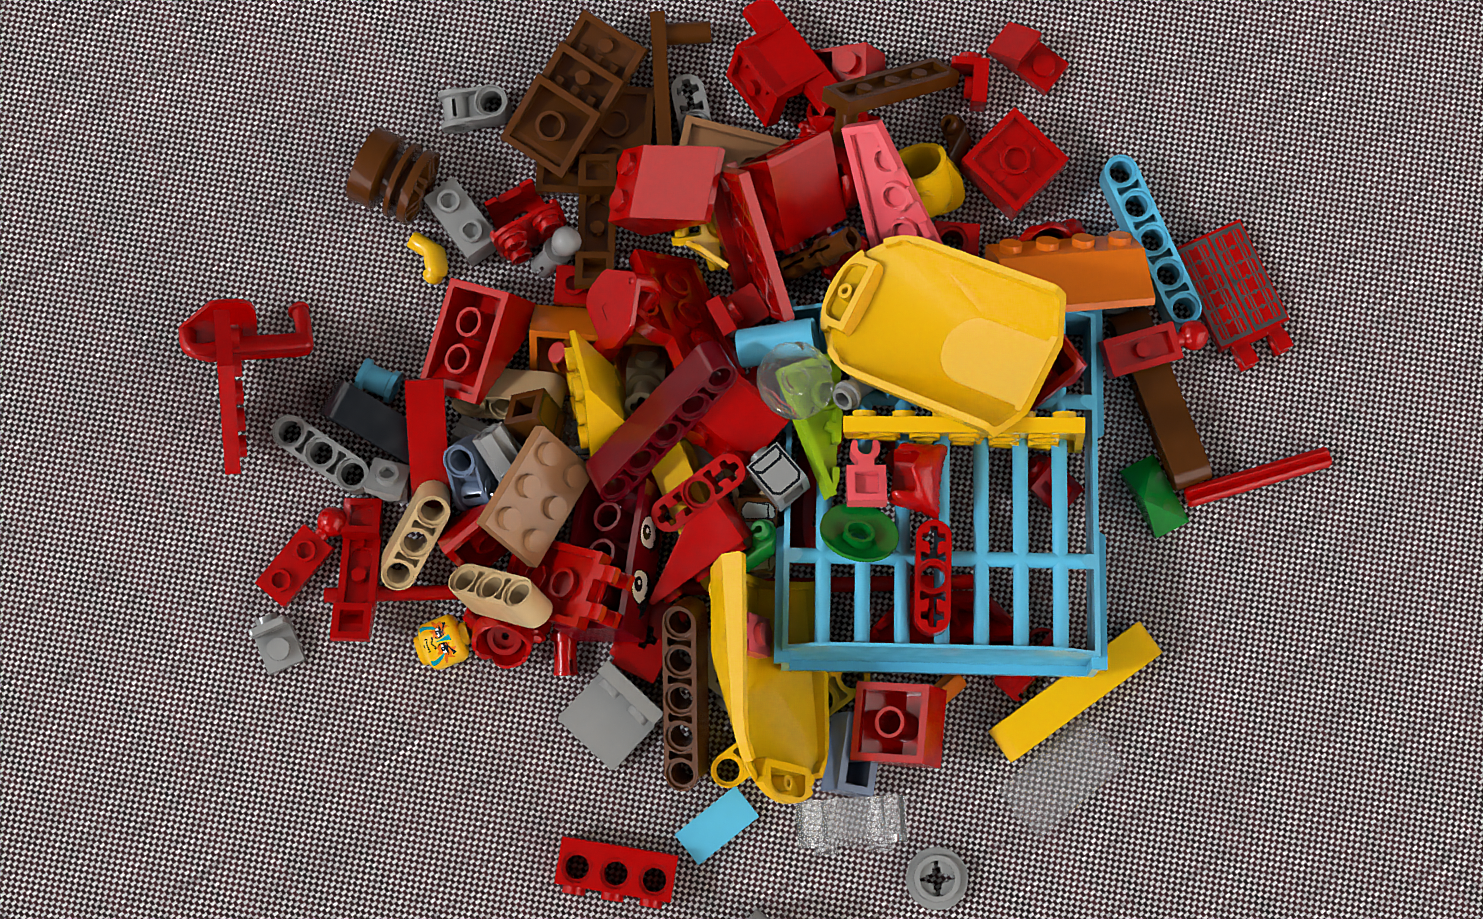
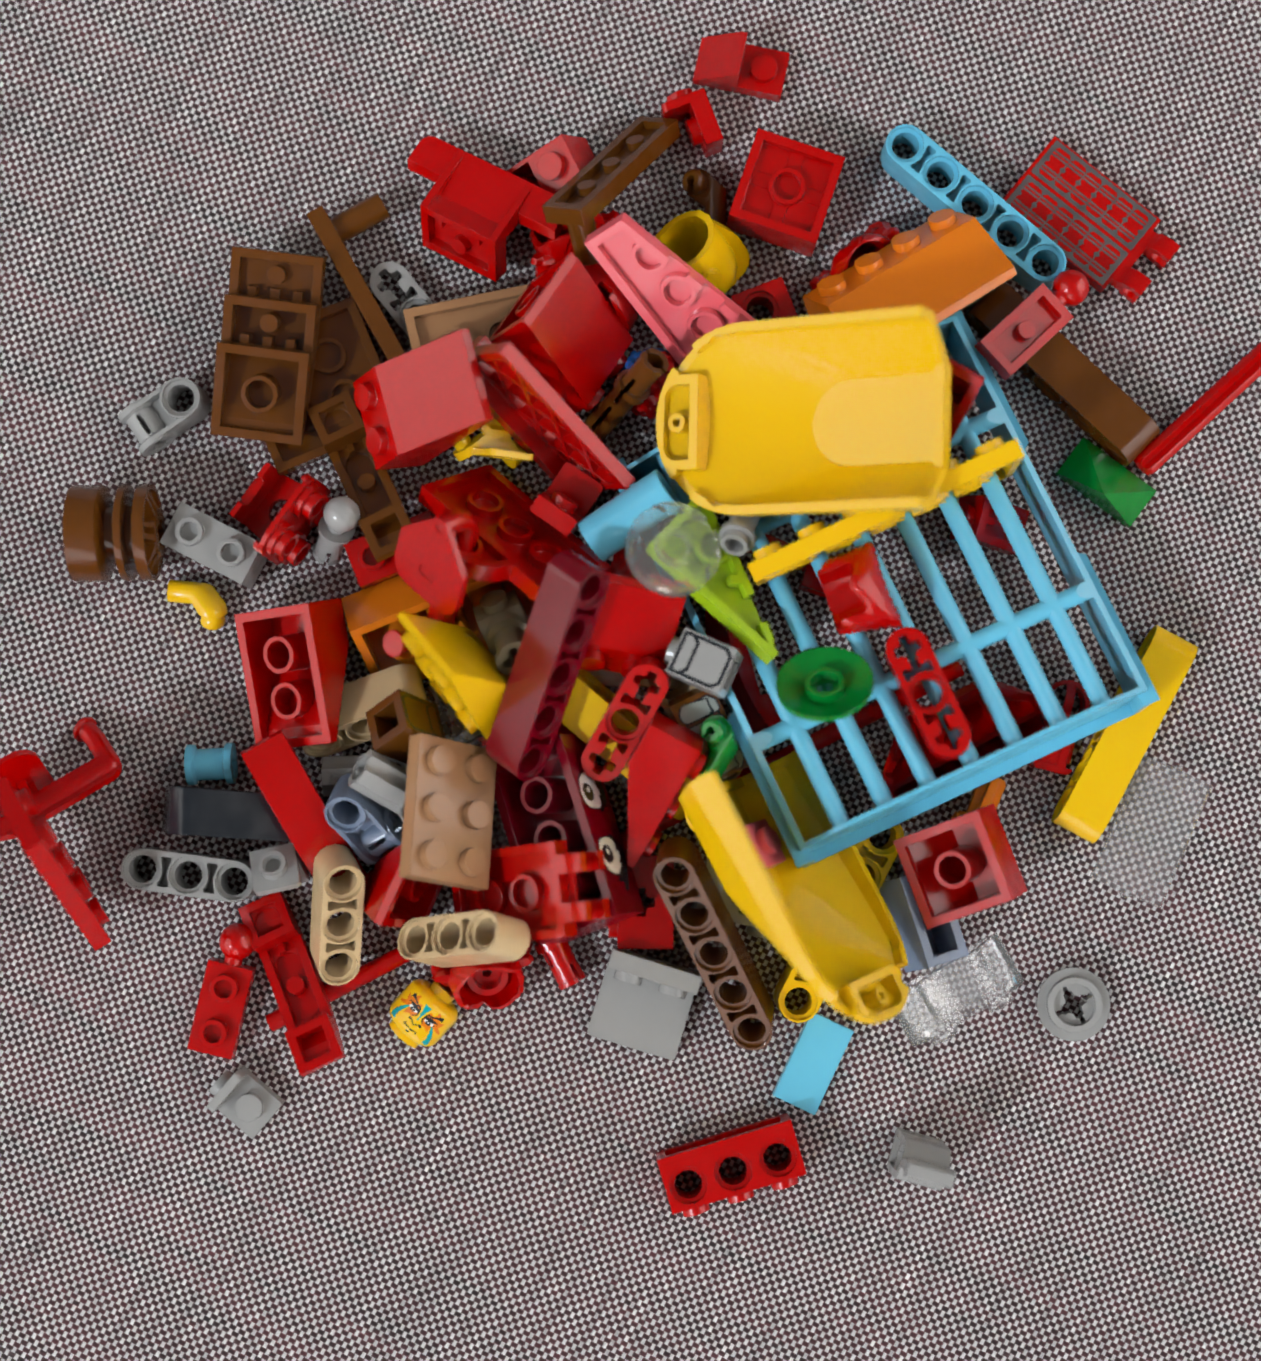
camera: 30 degrees left, 5 degrees up
(865, 481) = (801, 622): coral plate -> none

